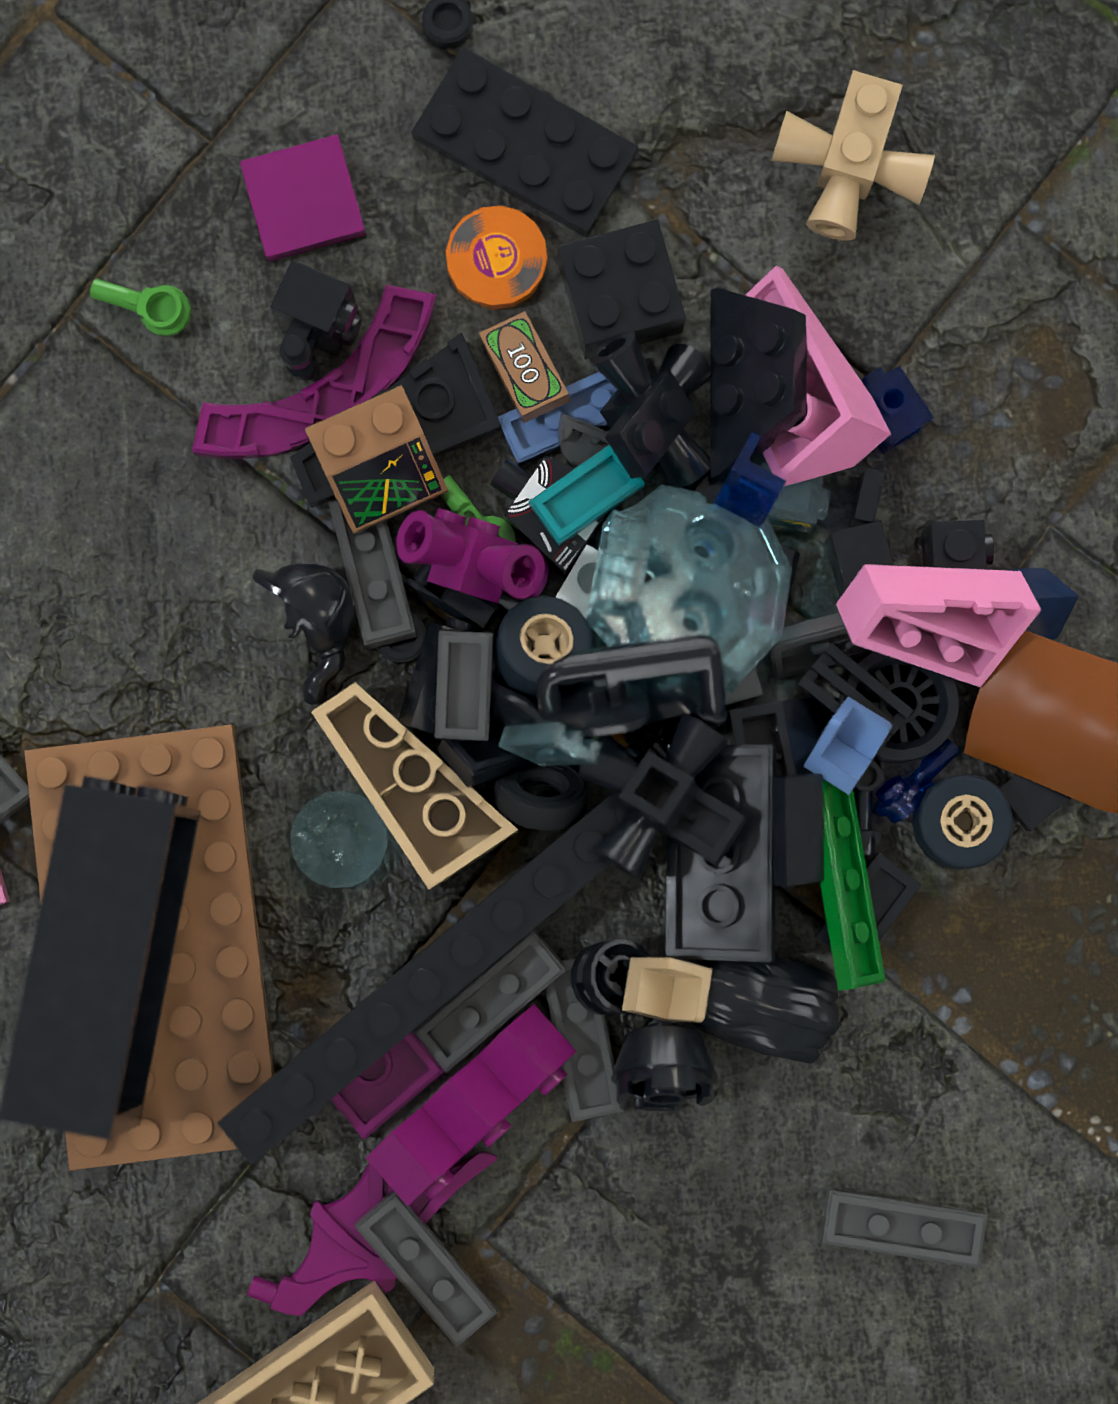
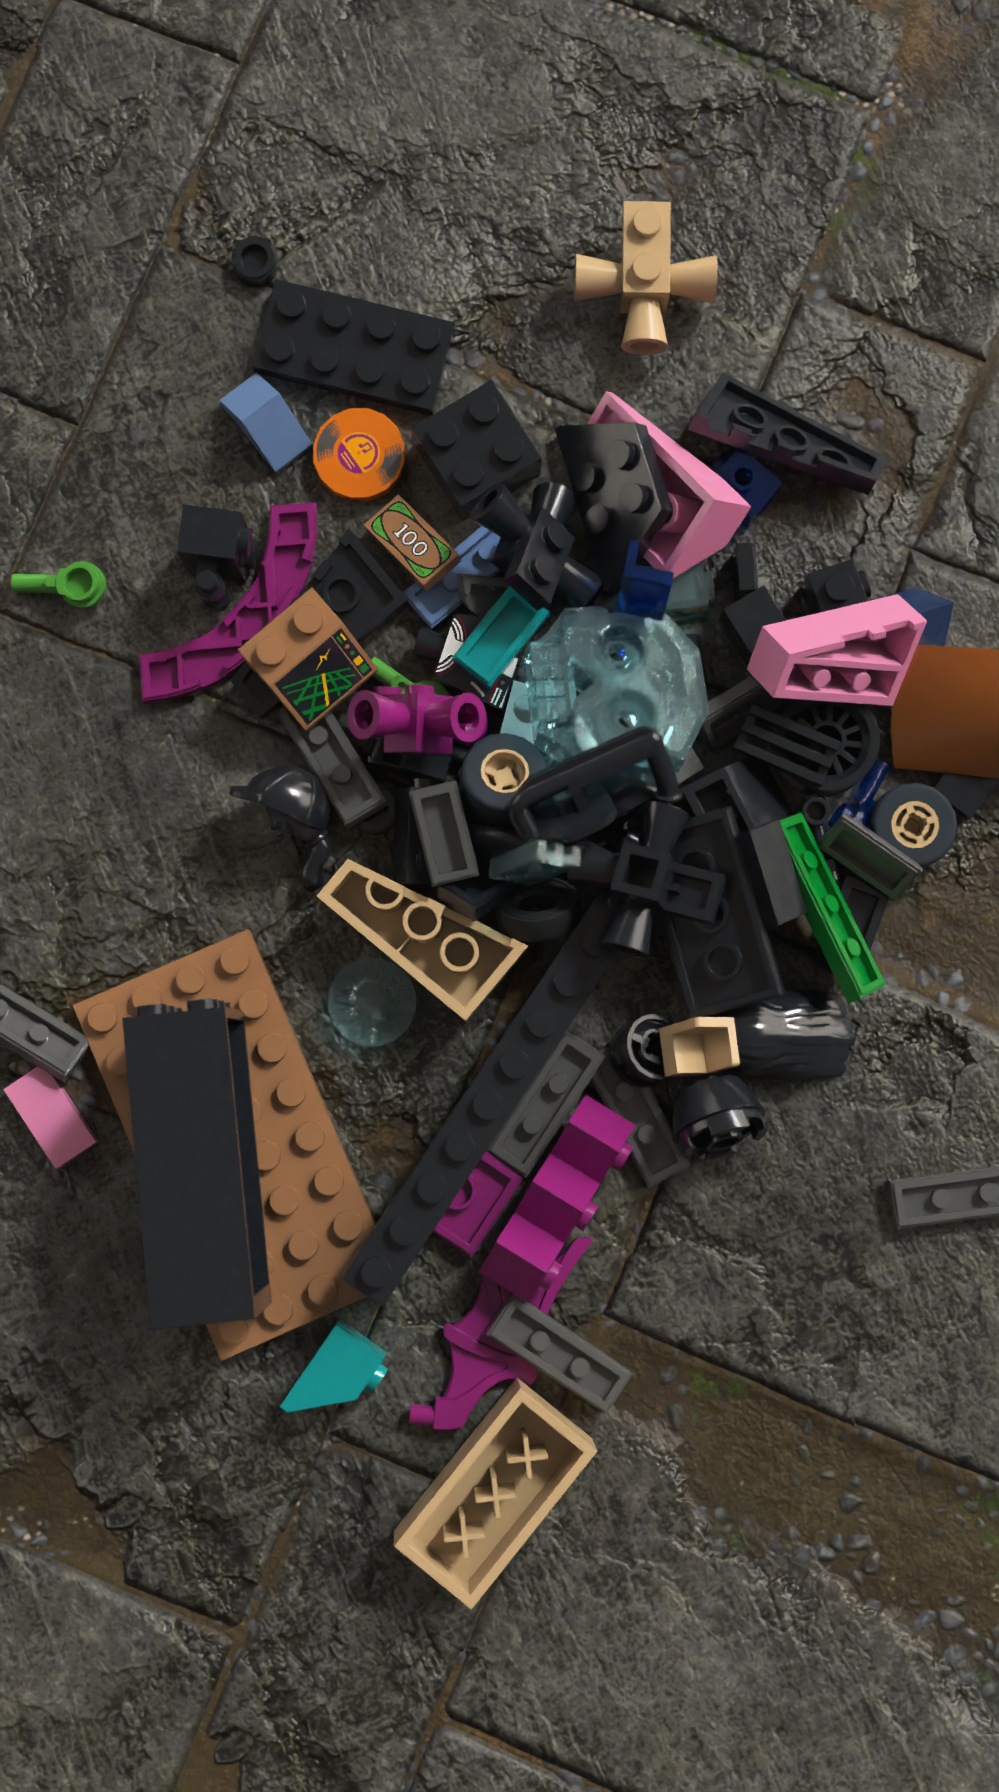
camera: 15 degrees left, 0 degrees up
(188, 1218) = (338, 1371): none -> teal slope
(302, 198) = (174, 451): magenta tile -> none
(409, 195) = (267, 422): none -> medium blue slope
(848, 745) = (794, 787): medium blue panel -> none
(908, 840) = (870, 856): none -> dark grey tile
(938, 356) = (779, 433): none -> black wing

